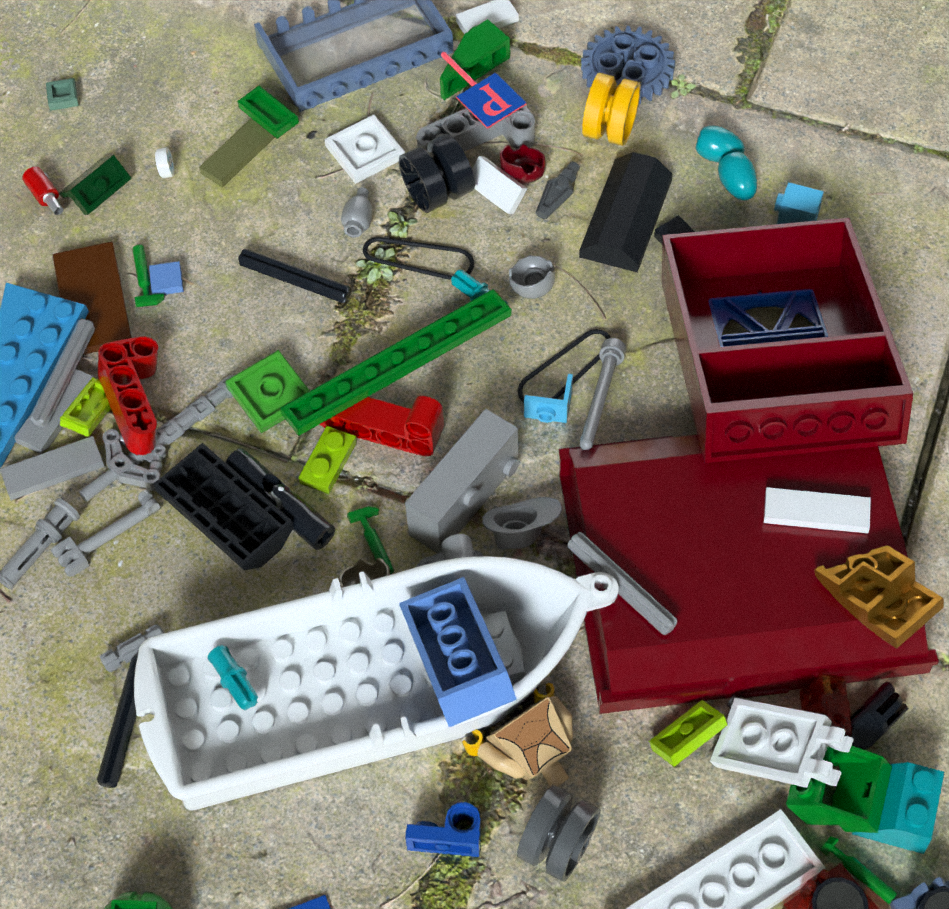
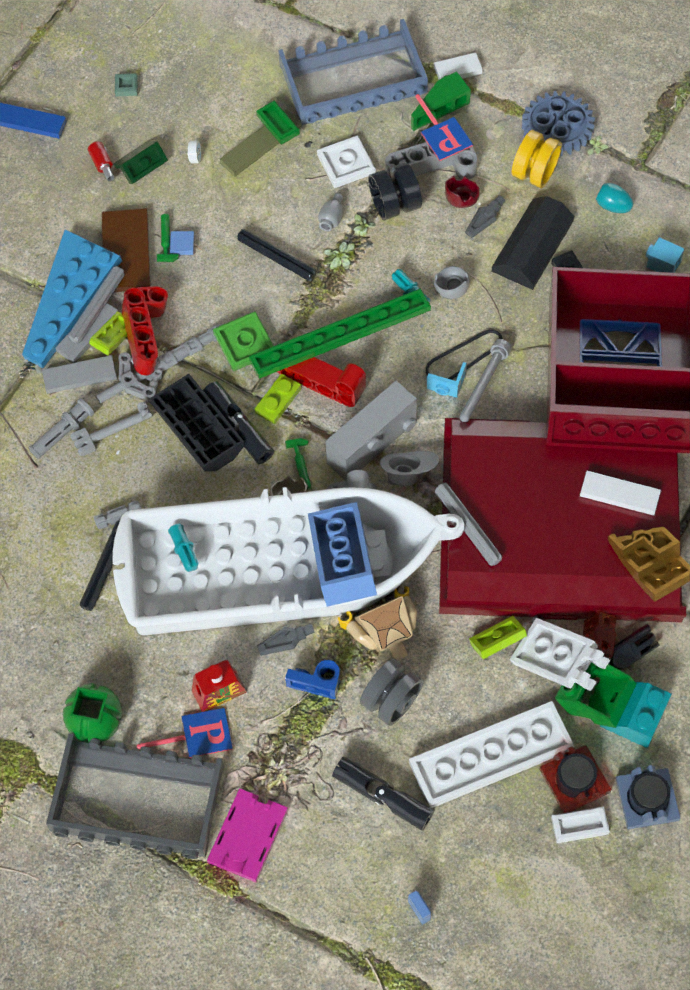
camera: 10 degrees right, 5 degrees up
(310, 864) = (216, 685): none -> red torso
(393, 784) = (284, 639): none -> dark grey piece
(416, 244) = (370, 243): black piece -> none
(497, 185) = (439, 206): white tile -> none
(738, 175) = (623, 225): teal animal -> none
(860, 871) = (598, 752): green piece -> none

